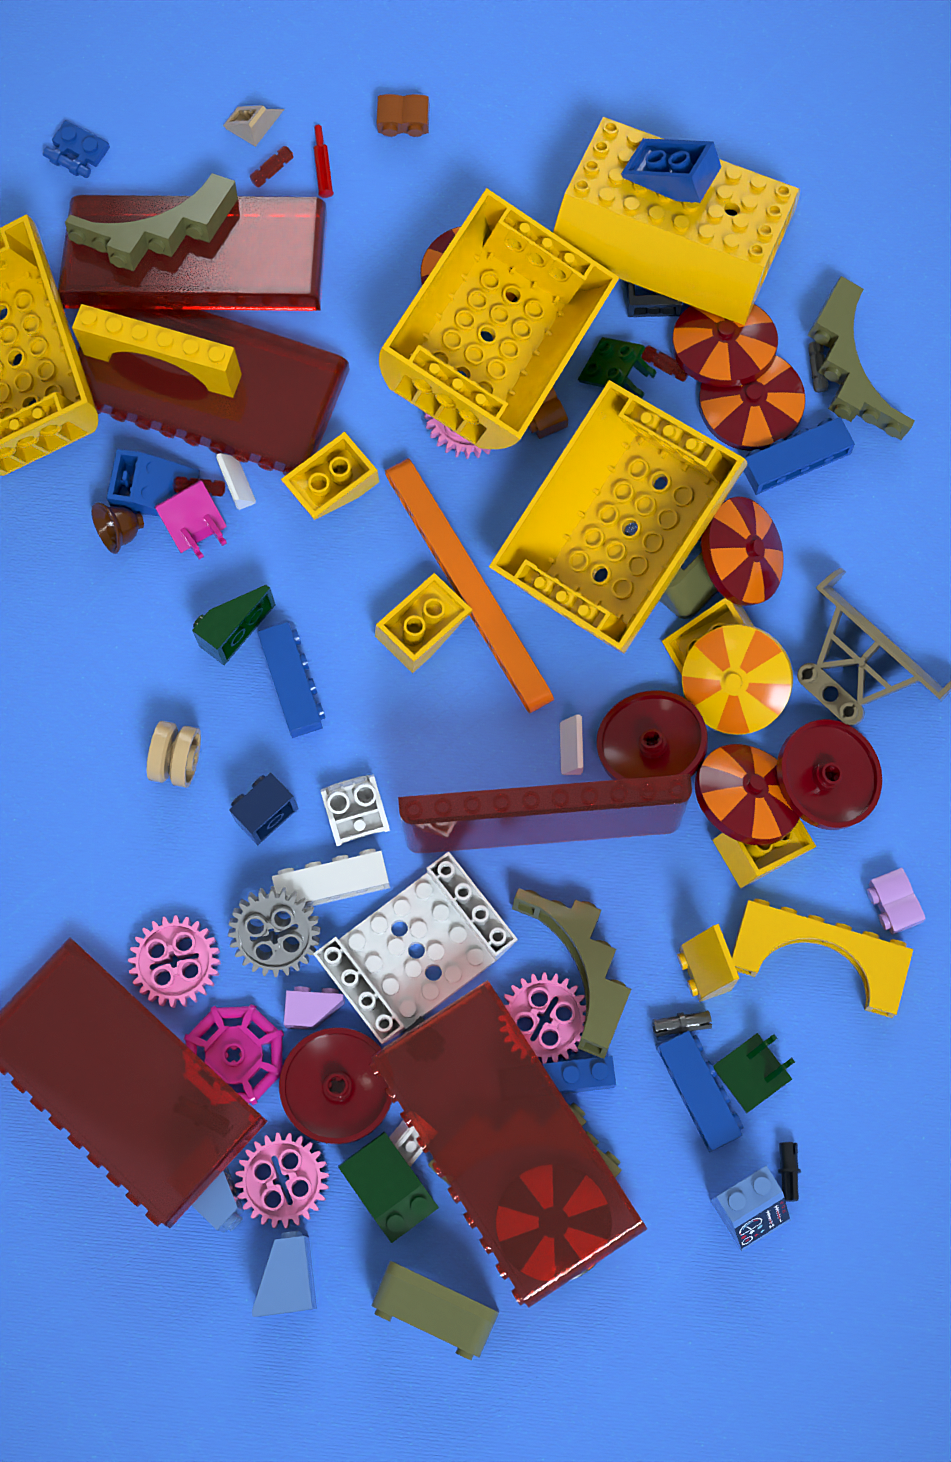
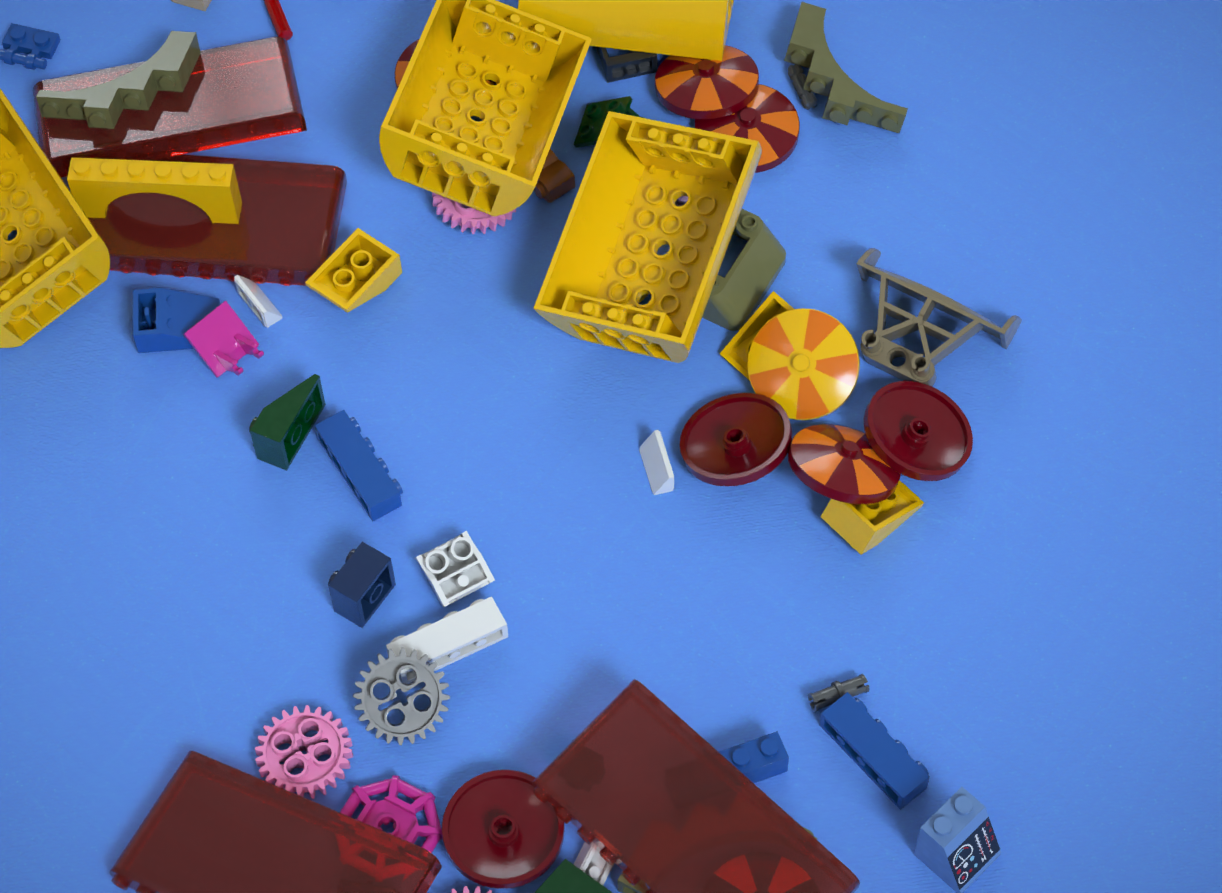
camera: 15 degrees left, 15 degrees down
(116, 525) = (145, 363): reddish brown hat -> none
(173, 754) = (257, 554): tan wheel -> none
(216, 488) = (241, 309): clear red axle -> none
(271, 166) = (225, 23): clear red axle -> none
(310, 1009) = (457, 763): lavender slope -> none
(422, 622) = (477, 384): yellow slope -> none
(442, 915) = (570, 646): white slope -> none
(469, 586) = (517, 344): orange beam -> none
(544, 814) = (646, 515): clear red windscreen -> none
(566, 1031) = (725, 725): bright pink gear -> none
(593, 959) = (731, 648): olive arch -> none
(664, 363) = (655, 112): clear red axle -> none
(708, 964) = (851, 623): yellow slope -> none
(743, 552) = (777, 250): dish -> none
(753, 1072) = (923, 721): dark green plate -> none
(789, 1170) = (982, 792): black axle -> none
(798, 455) = (805, 163): blue brick -> none
(878, 962) = (1015, 590): yellow arch -> none
(896, 901) = (1017, 531): lavender brick -> none

